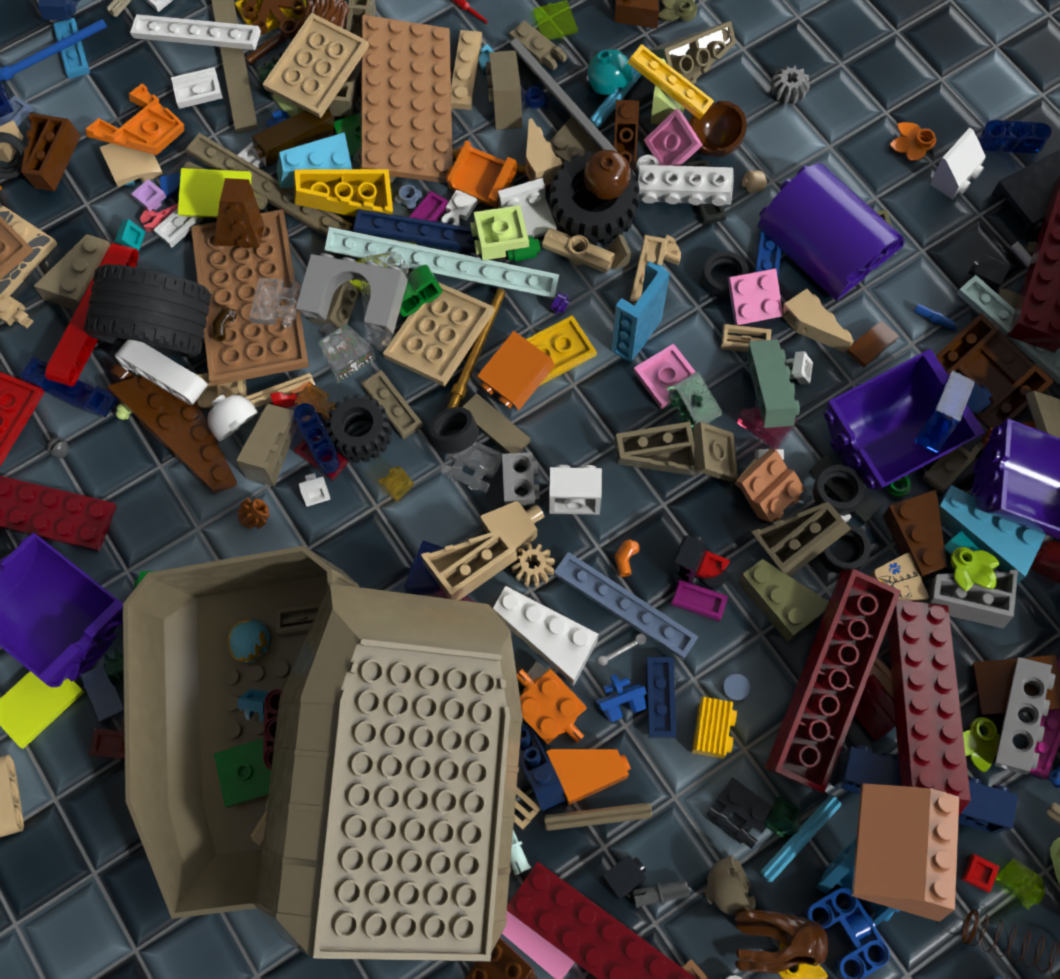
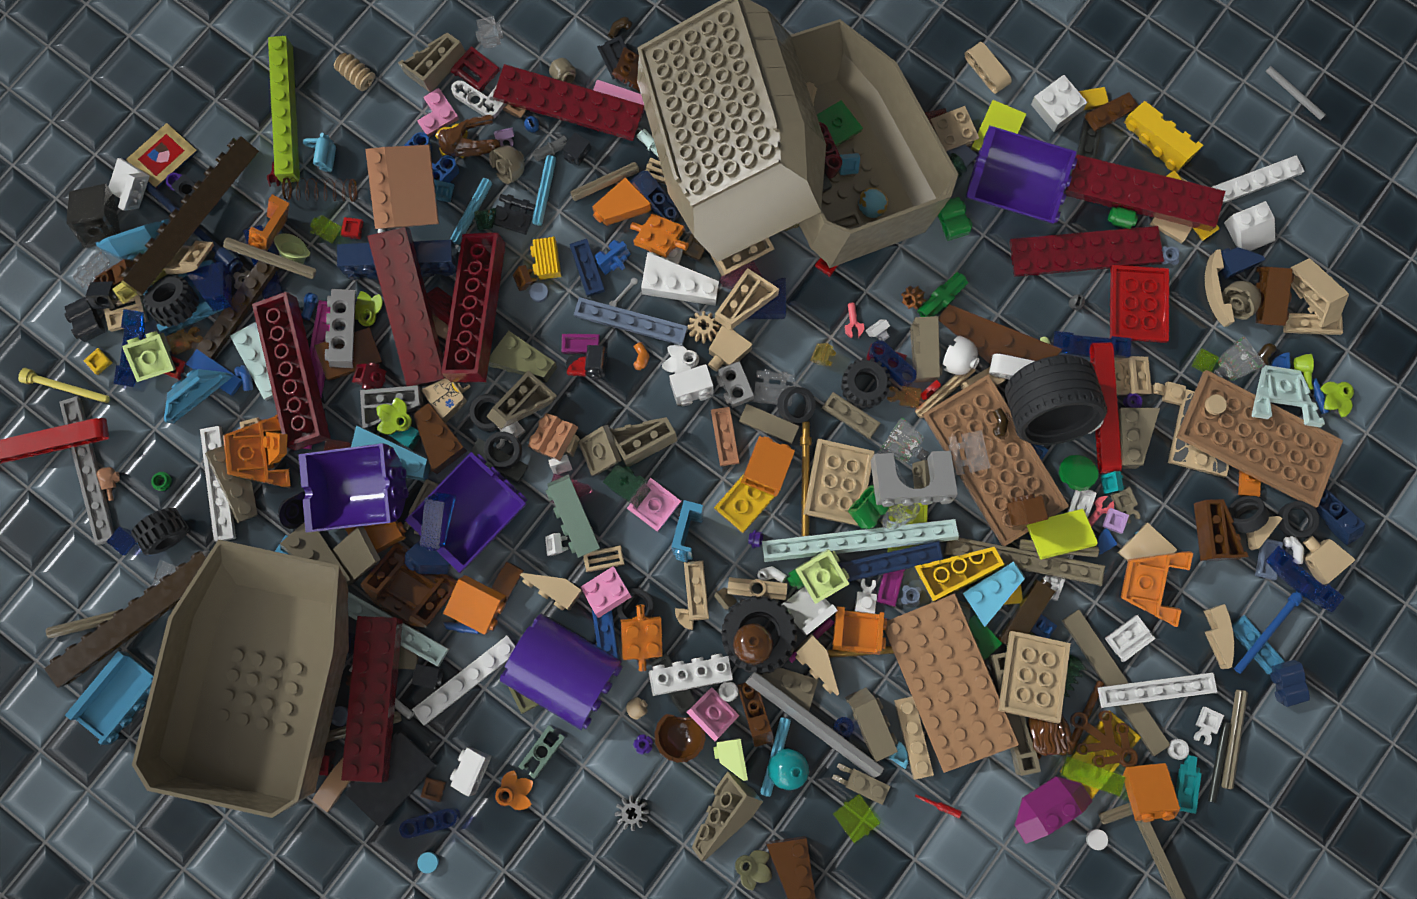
camera: 160 degrees right, 10 degrees up
(39, 340) = (1132, 376): none -> tan slope
(55, 309) = (1132, 397): none -> dark purple plate
(91, 718) = (955, 129): none -> tan hinge
(101, 62) = (1221, 635): none -> tan slope
(128, 209) = (1125, 501): none -> dark tan plate
(162, 254) = (1078, 472): none -> green tile
(215, 504) = (943, 296): none -> green piece
(340, 513) = (853, 322): none -> coral bar
(554, 426) = (724, 436): none -> nougat plate
(556, 265) = (771, 573): none -> white arm
(581, 534) = (678, 359): none -> white plate
(670, 81) = (731, 757): yellow tile -> none
(672, 948) = (527, 125): none -> blue hinge
(687, 833) = (544, 190): none -> medium azure axle
(723, 938) = (505, 134): none -> lavender tile
(728, 236) = (641, 637): none -> orange plate
(753, 711) = (523, 278): none -> reddish brown tile
(756, 148) = (643, 739): none -> dark purple plate
(880, 165) = (534, 751): none -> sand green piece
(914, 326) = (475, 605): none -> orange brick
(941, 262) = (464, 681): none -> white plate
(995, 641) = (369, 376): none -> dark red brick
(1002, 168) = (433, 789): none -> reddish brown tile
(1023, 106) = (428, 862): none -> medium azure tile

